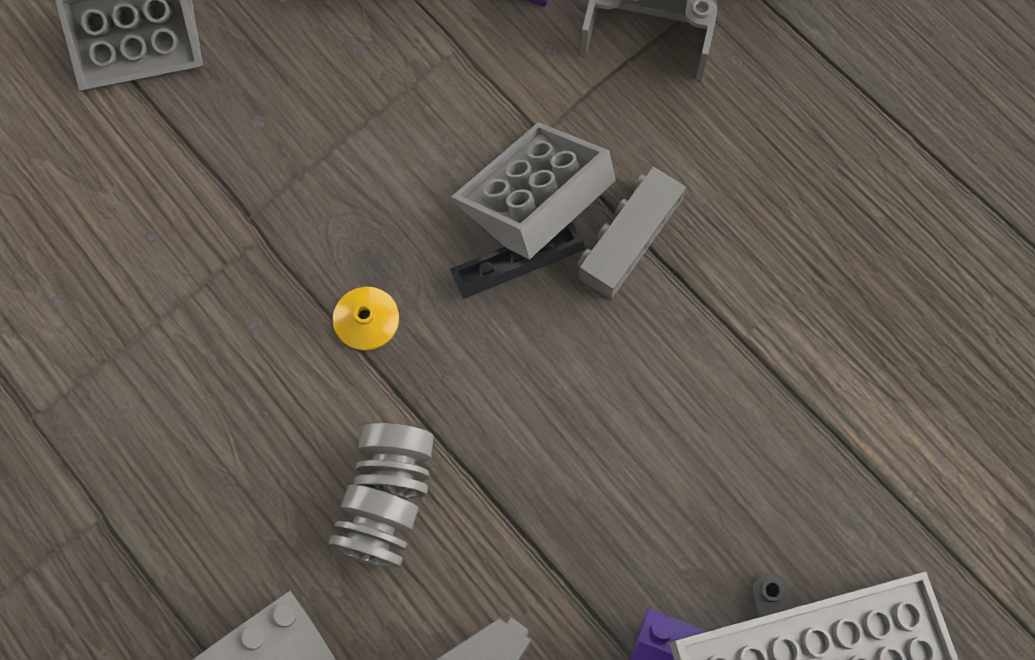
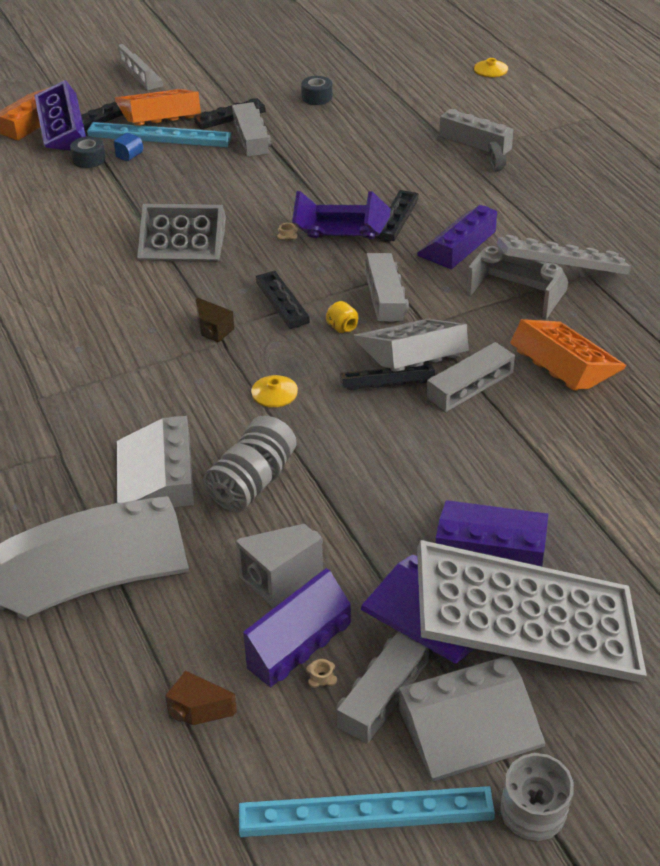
camera: 15 degrees right, 30 degrees down
(237, 206) = (214, 320): none -> dark brown slope
(247, 517) = (156, 463): none -> slope
(323, 134) = (282, 299): none -> black plate
(420, 153) = (342, 317): none -> yellow head
(467, 80) = (385, 287): none -> light grey brick
(734, 519) = (494, 531): none -> dark purple slope
(749, 153) = (565, 353): none -> orange slope

